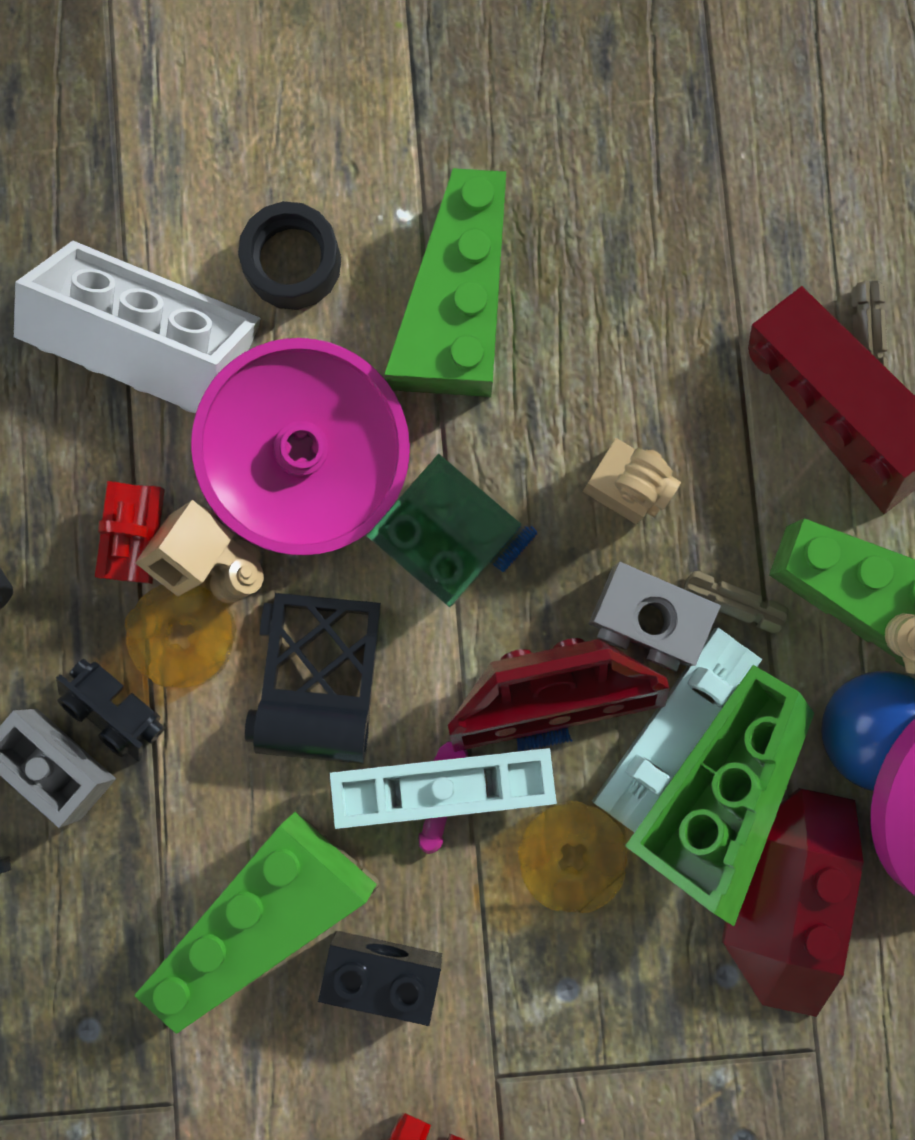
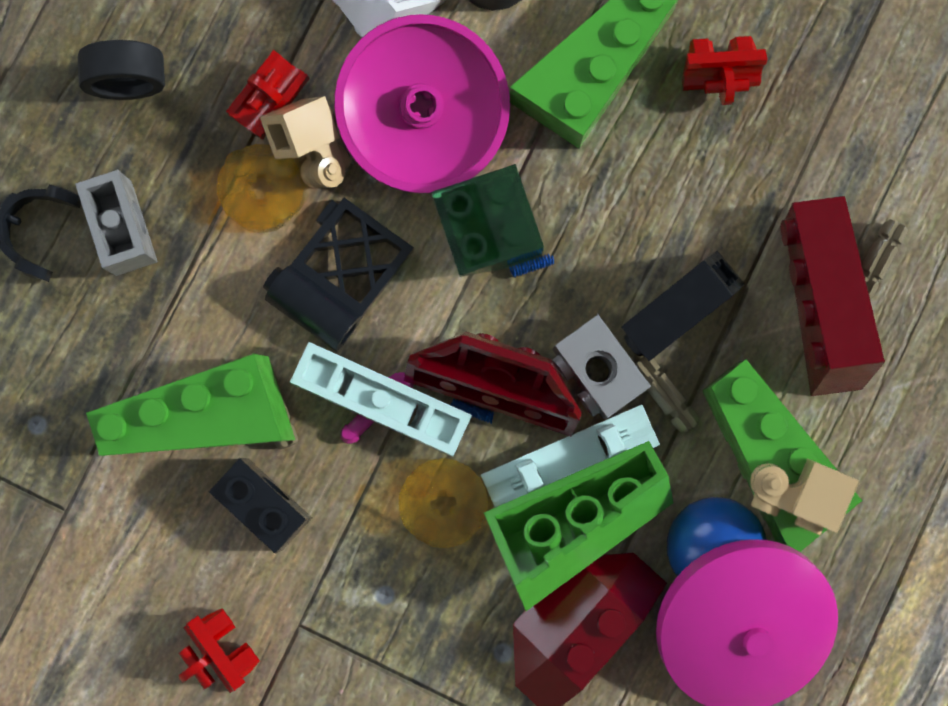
camera: 25 degrees right, 0 degrees up
(91, 698) = (181, 227): black hinge -> none
(596, 228) = (725, 70): none -> red hips
(632, 482) = (640, 264): tan brick -> none
(699, 511) = (682, 306): none -> black slope

